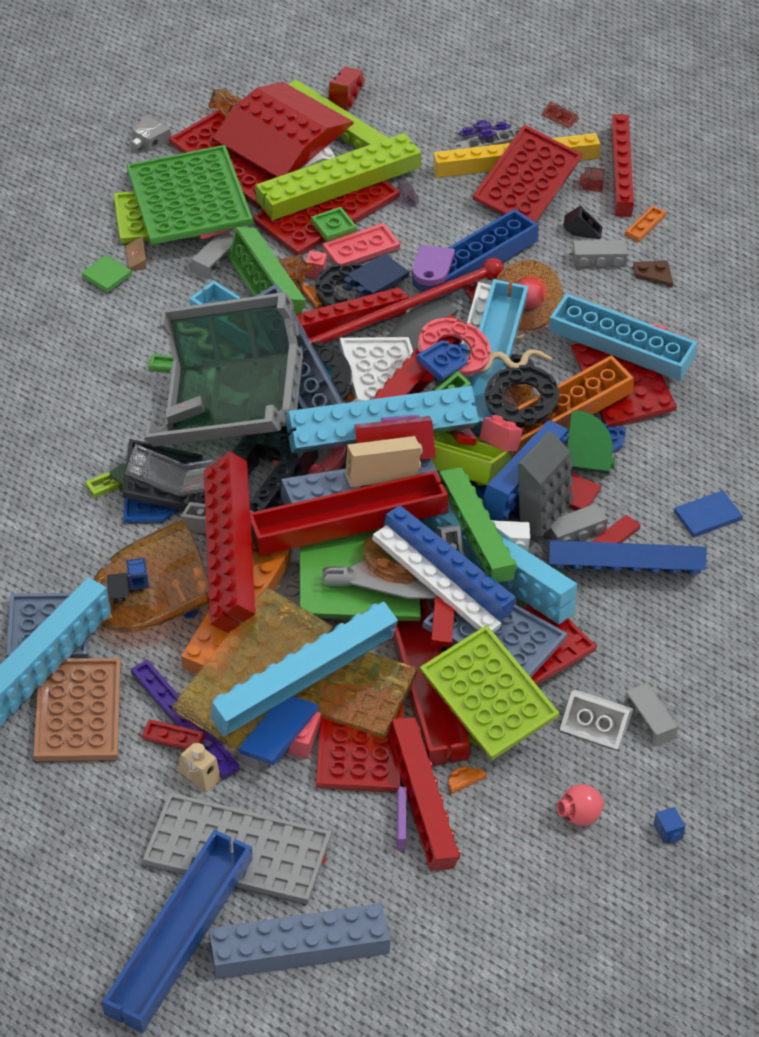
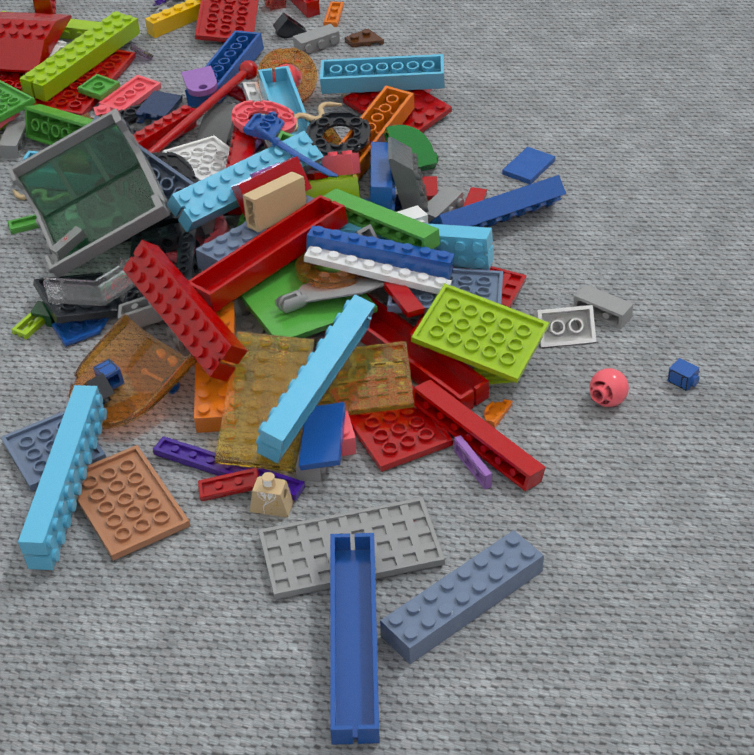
camera: 25 degrees left, 5 degrees down
(430, 389) = (277, 142): none -> blue sword

